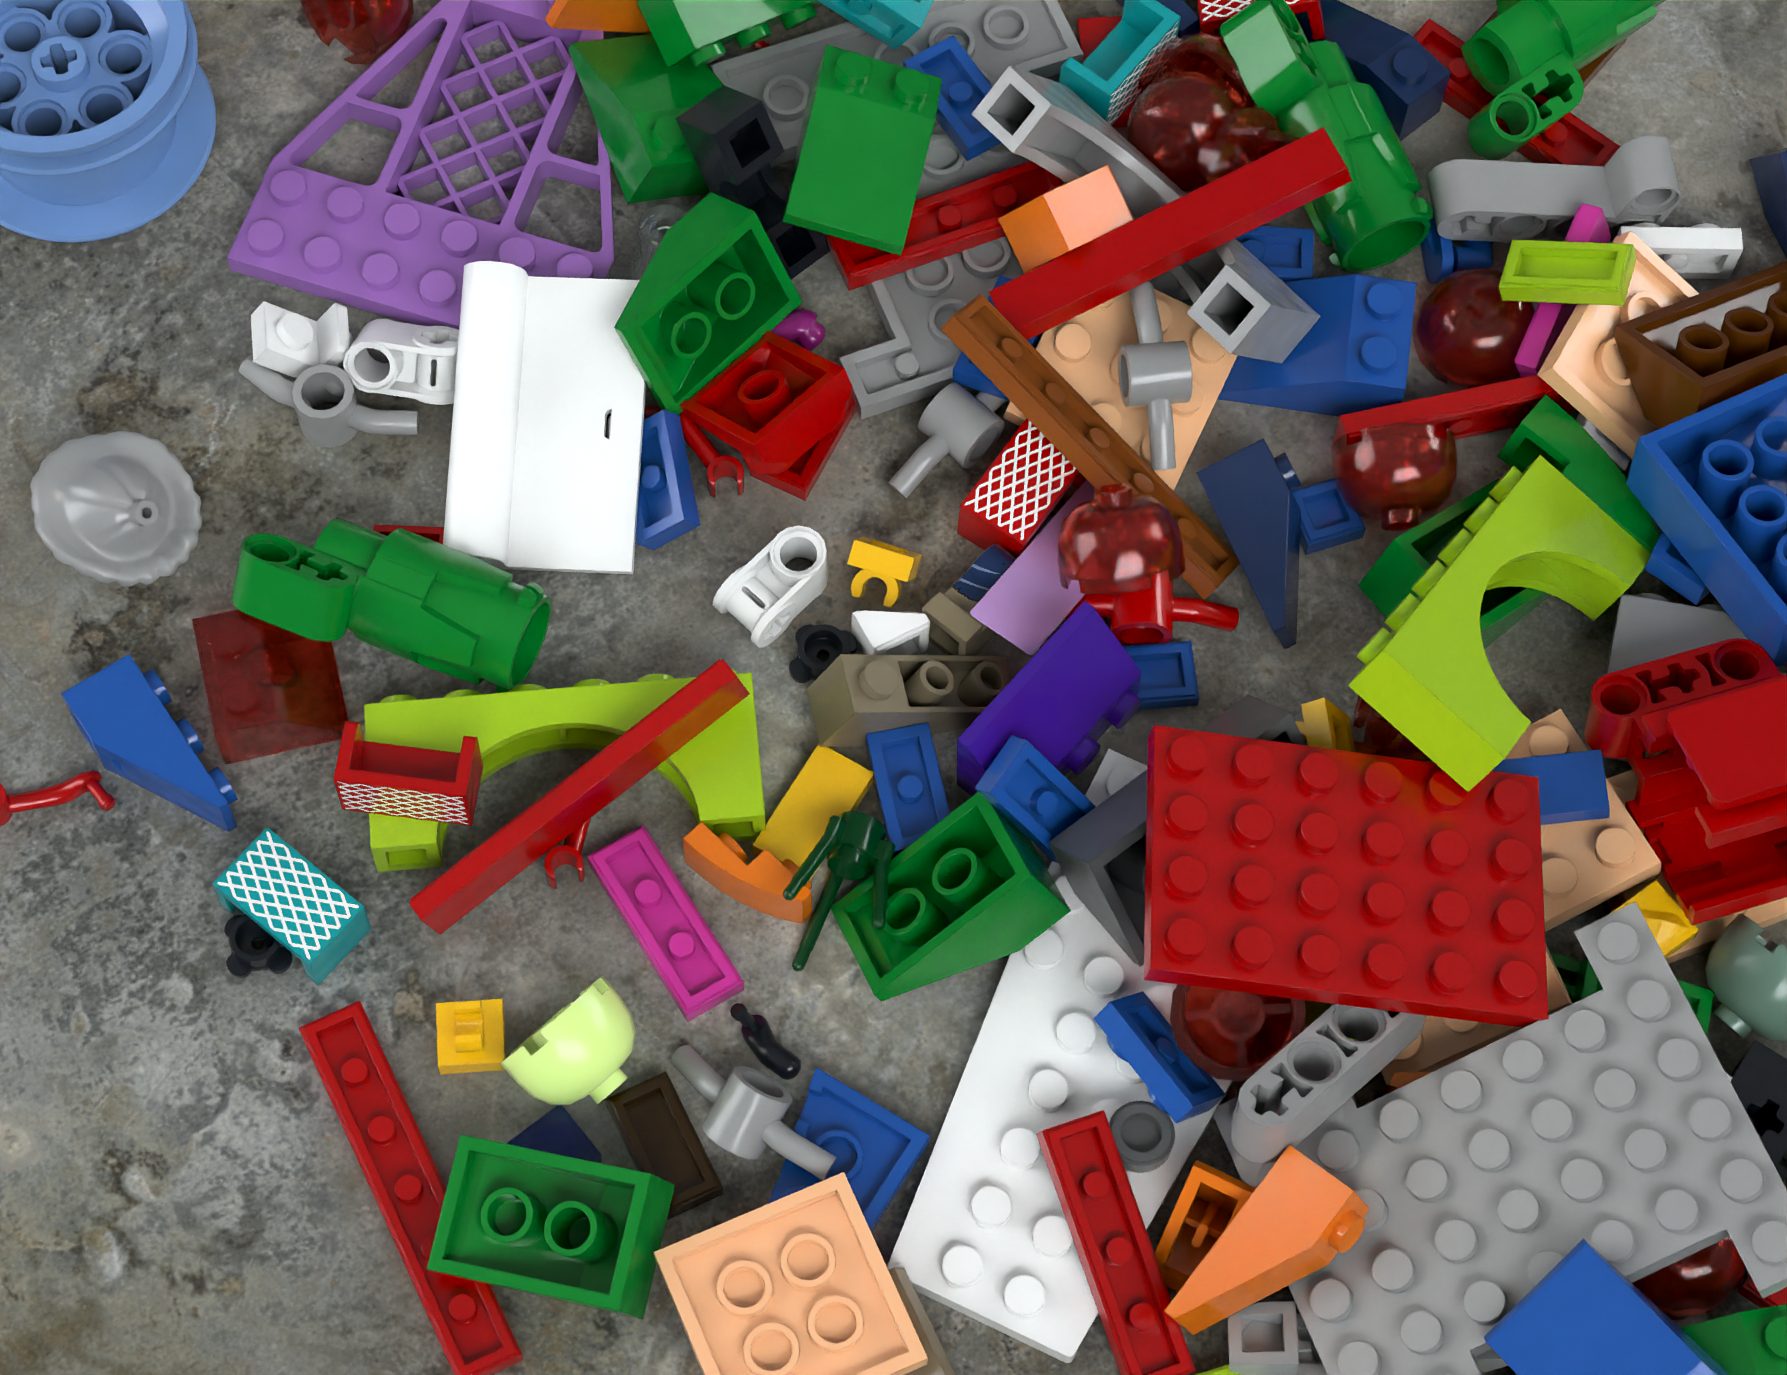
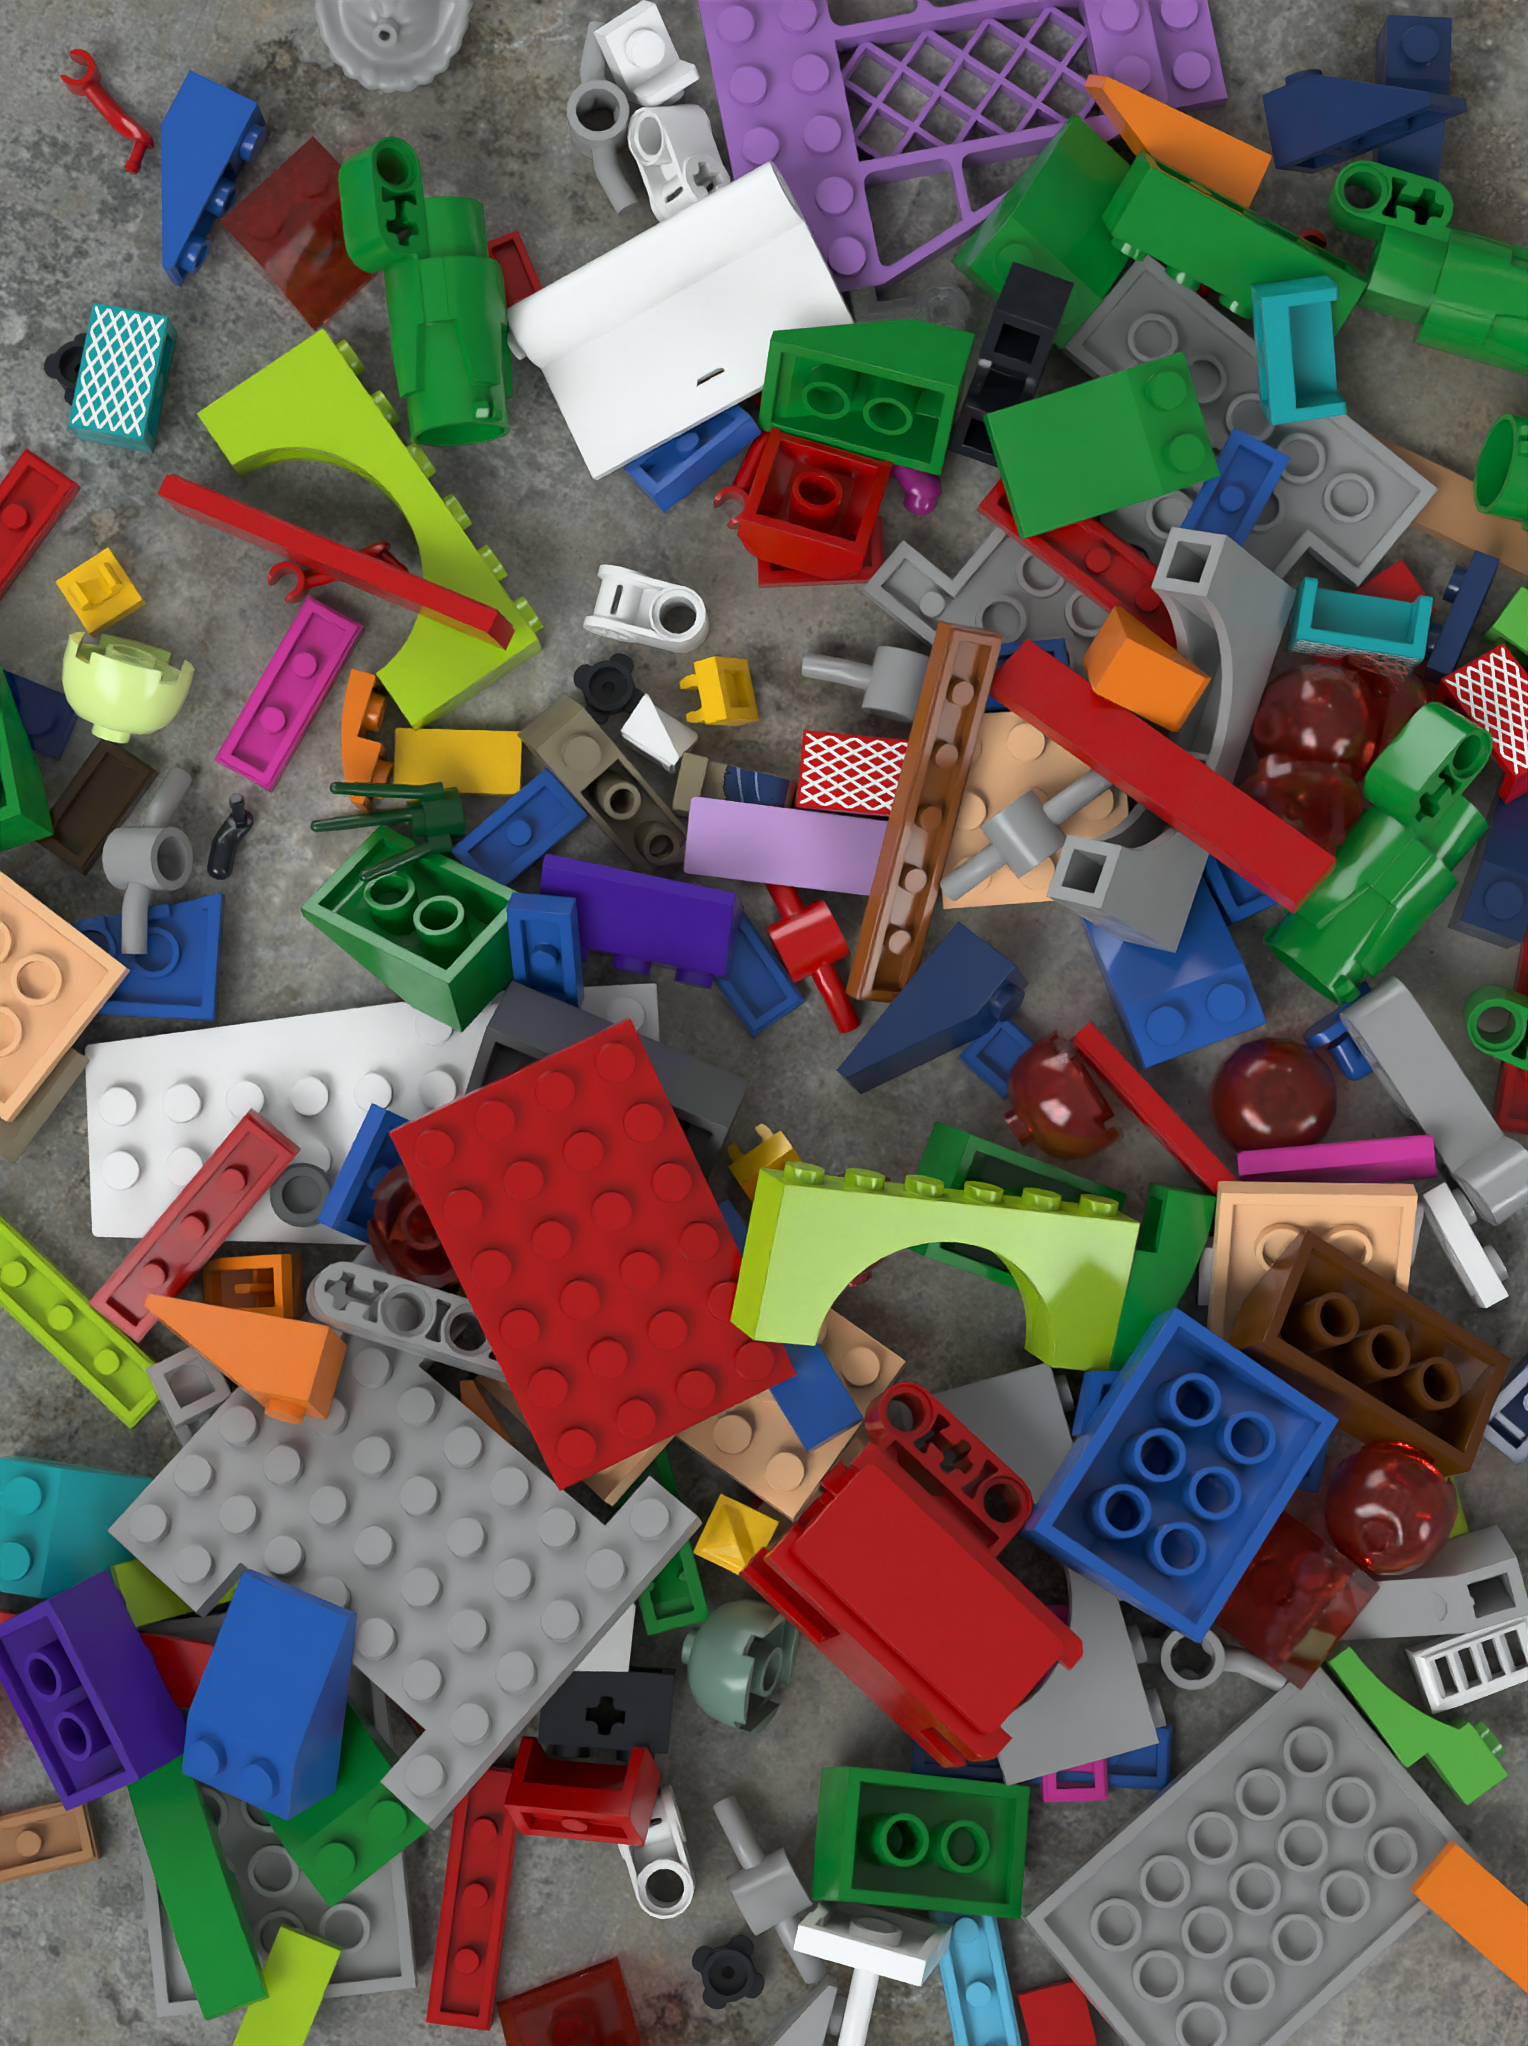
camera: 65 degrees right, 20 degrees up
(408, 779) = (264, 406): red panel -> none
(1118, 542) = (822, 895): clear red cylinder -> none
(1568, 272) = (1337, 1159): lime tile -> none

